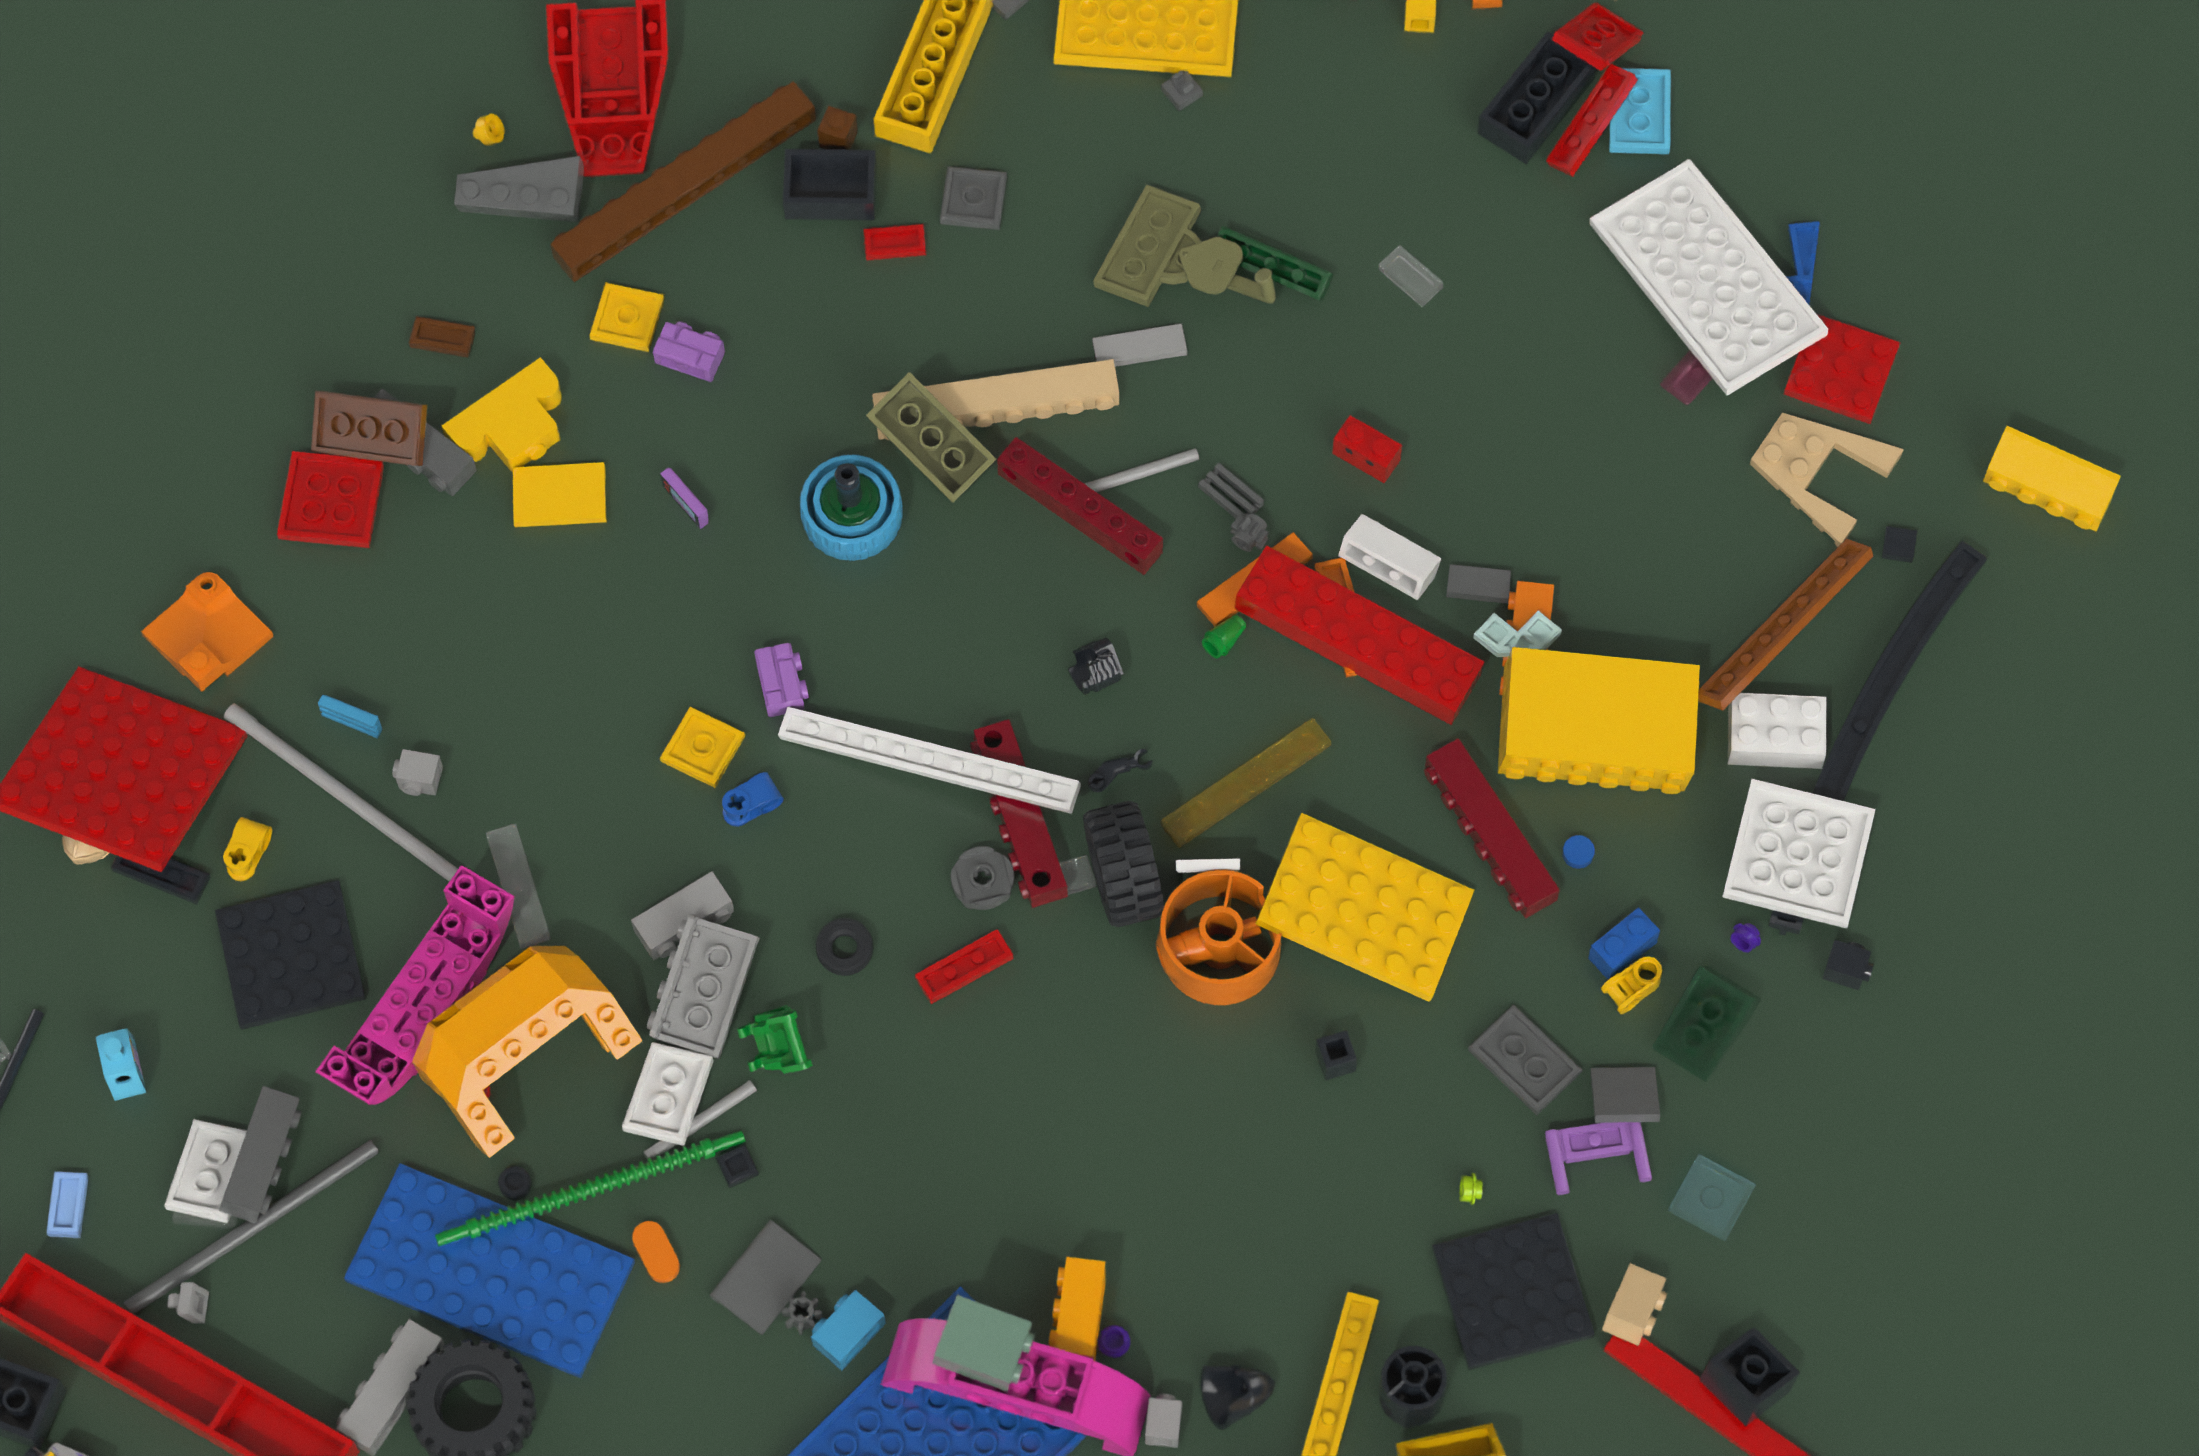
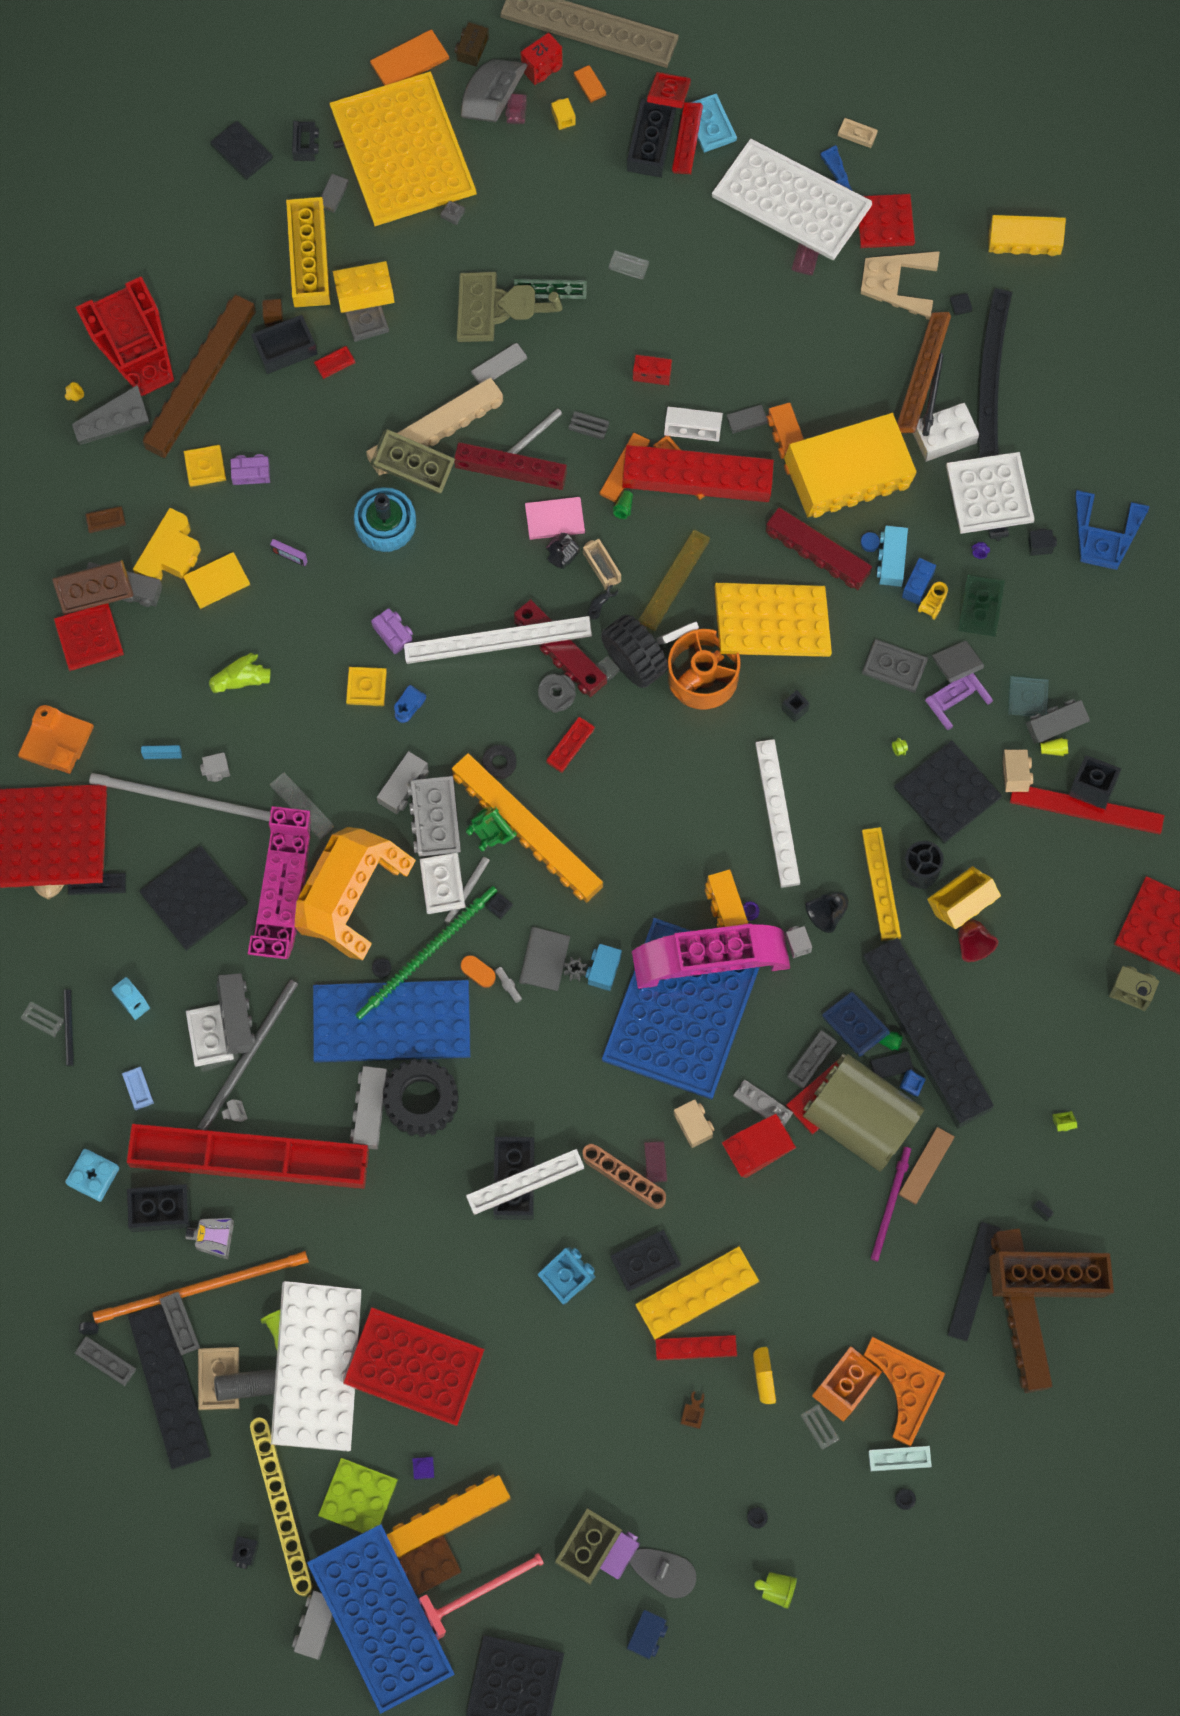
camera: 25 degrees left, 5 degrees up
(248, 844) = (139, 847): yellow piece -> none
(521, 649) = (240, 674): none -> lime animal
(691, 1292) = (508, 984): none -> light grey bar
(836, 1066) = (529, 829): none -> light orange brick
(983, 1343) = (691, 940): sand green brick -> none
(990, 146) = (363, 286): none -> yellow piece
(1111, 611) = (554, 516): none -> bright pink tile
(1146, 711) = (601, 563): none -> tan window
(1230, 1210) = (777, 813): none -> white plate
(1249, 532) = (610, 442): dark grey gear -> none
(1500, 637) = (778, 443): light aqua tile -> none
(1602, 887) = (892, 556): none -> medium azure brick
(1716, 1294) = (1055, 747): none -> neon yellow cone
(1737, 1254) = (1057, 720): none -> dark grey brick
(1754, 697) = (928, 418): none -> black bar
(1862, 216) = (857, 133): none -> tan plate
(1944, 1013) = (1104, 546): none -> blue wing

